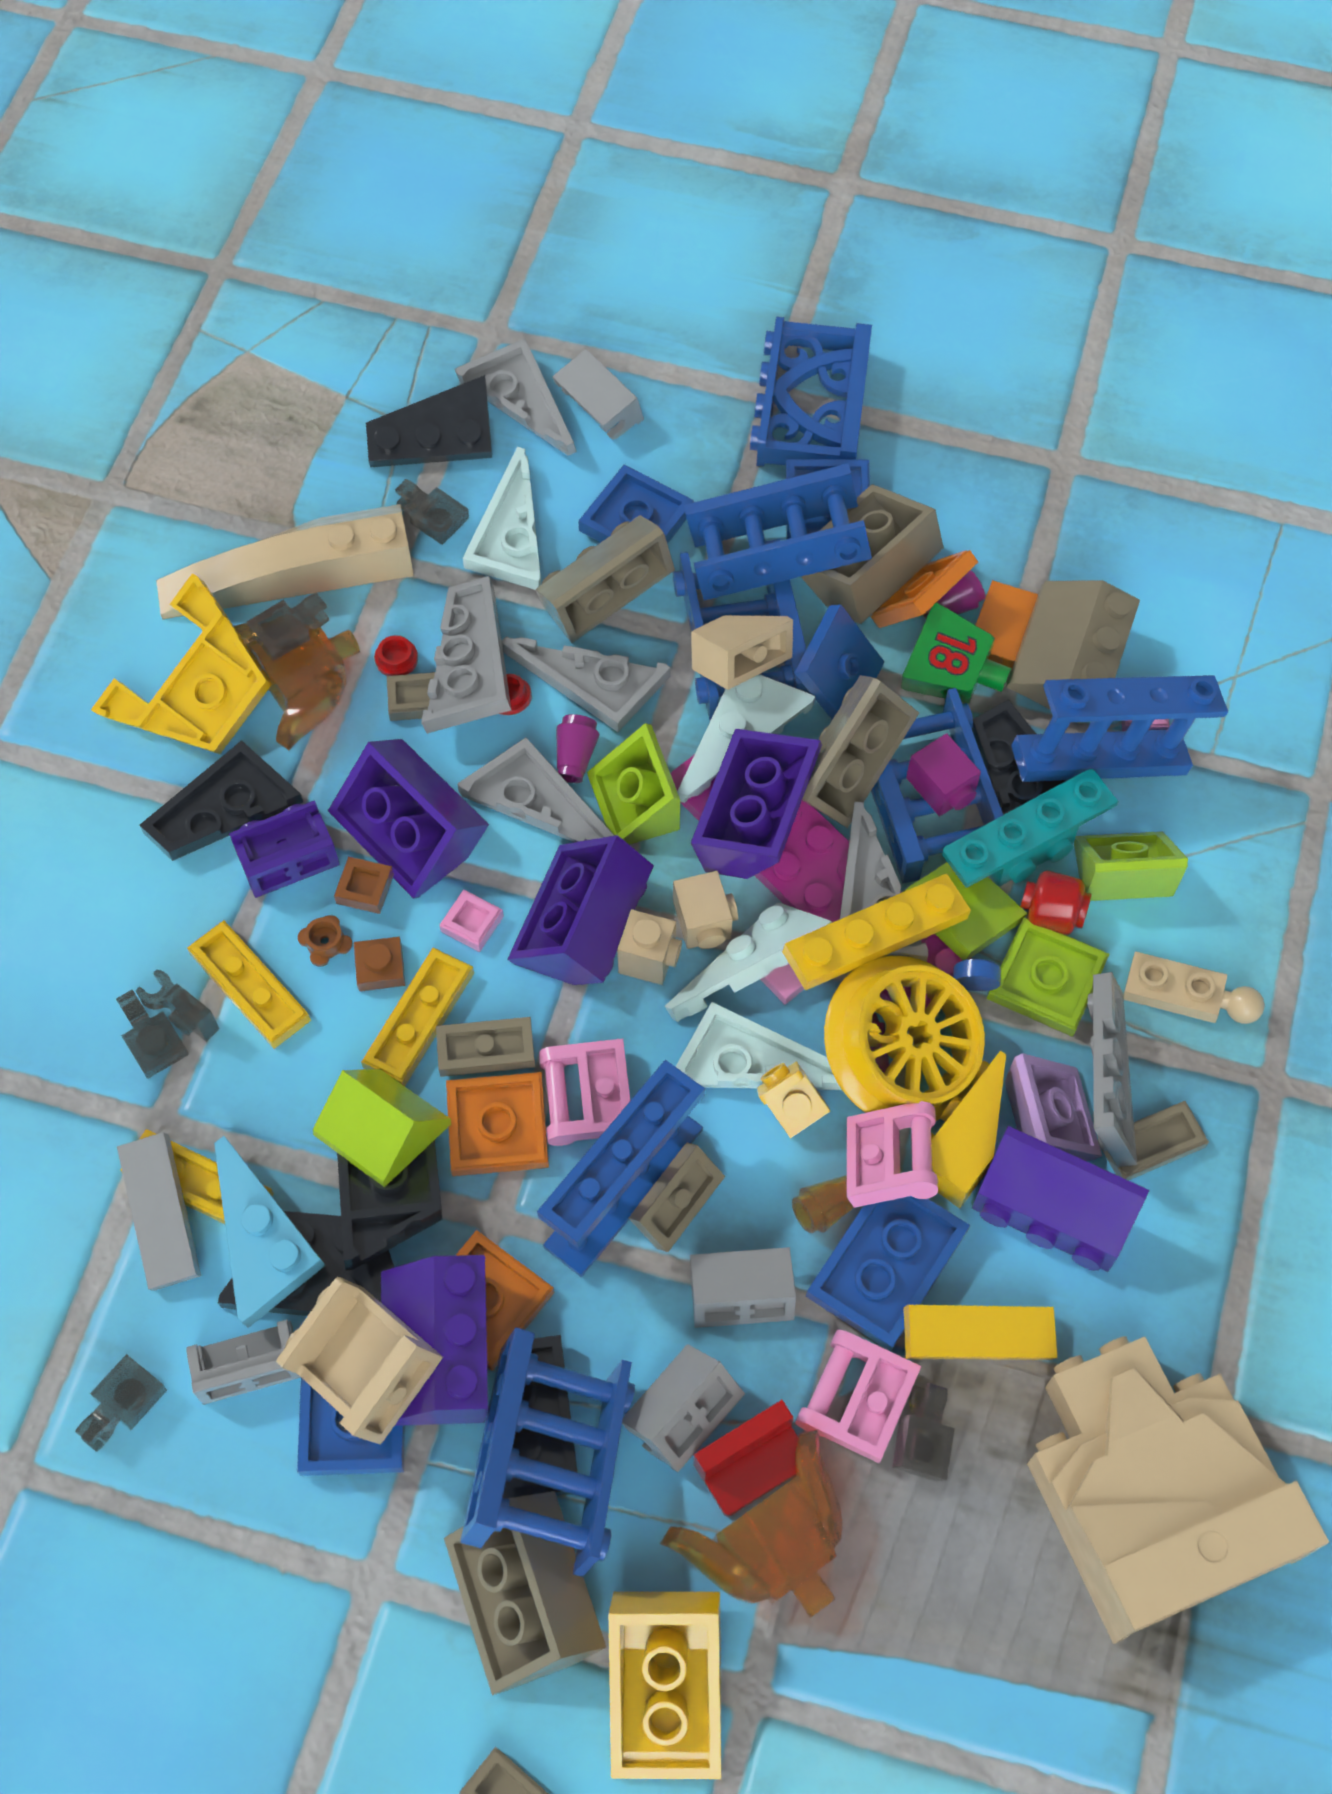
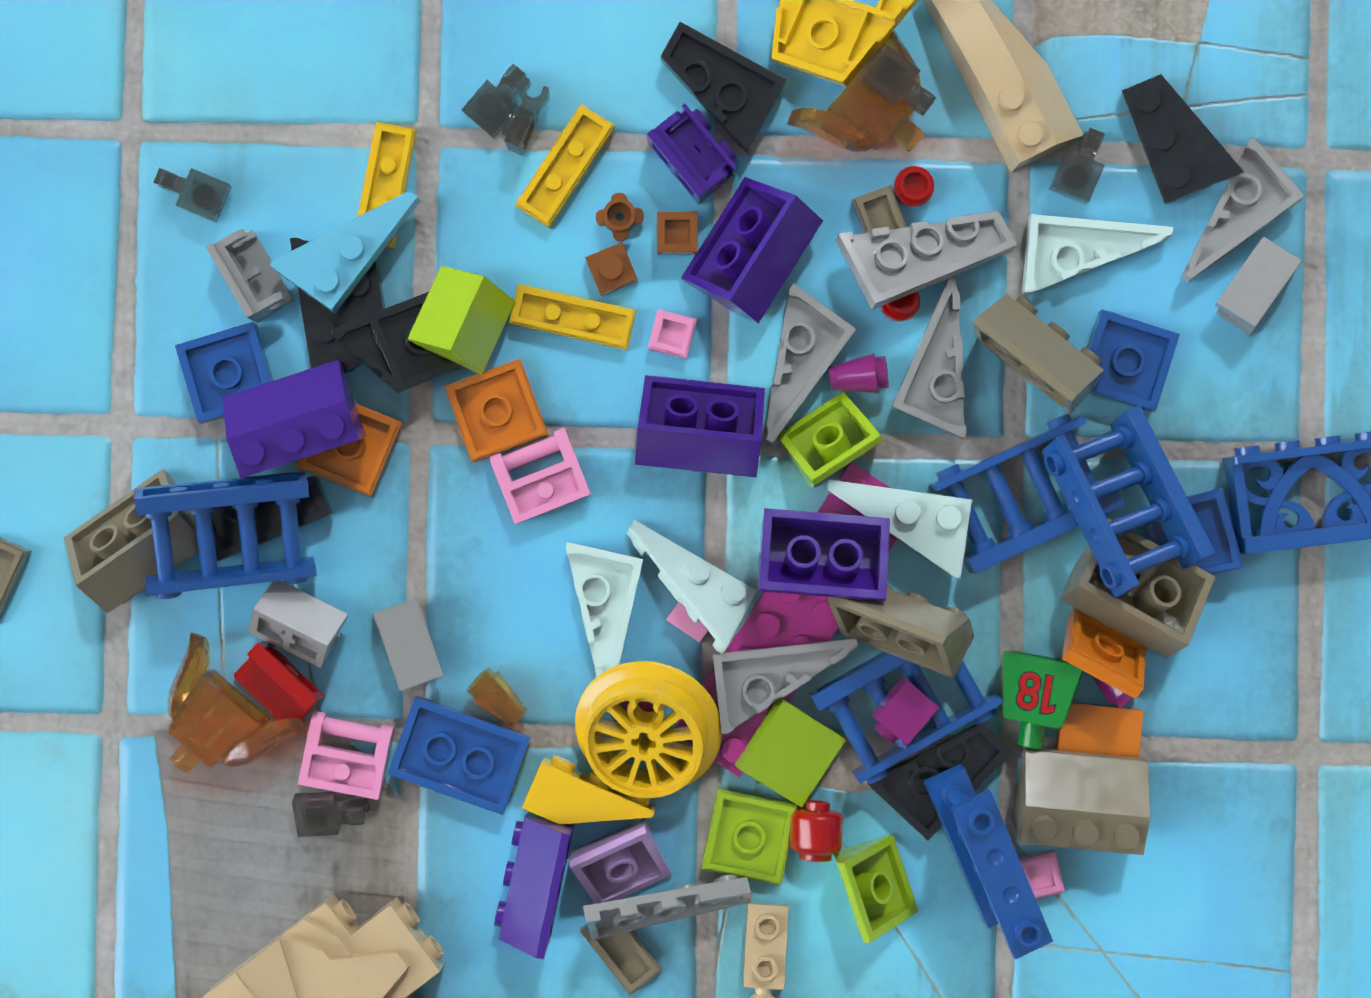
camera: 75 degrees right, 25 degrees up
(158, 1211) = (347, 165): light grey tile -> none
(359, 1359) = (254, 369): tan panel -> none
(485, 1046) = (557, 381): dark tan plate -> none
(621, 1168) = (460, 528): blue fence -> none
(648, 947) = (678, 493): tan brick -> none
(665, 1685) = (99, 661): yellow slope -> none
(676, 1197) = (467, 574): dark tan plate -> none
(704, 910) = (727, 532): tan brick -> none
(740, 647) = (982, 499): tan slope -> none
(792, 1097) = (573, 647): yellow bracket -> none
(837, 659) = (1001, 592): blue plate -> none
(875, 1155) = (534, 728): bright pink plate -> none
(876, 931) = (728, 687): yellow plate -> none
(978, 974) = (723, 777): blue tile -> none
(980, 1332) = (417, 840): yellow tile -> none
(1030, 833) = (874, 797): teal bracket -> none

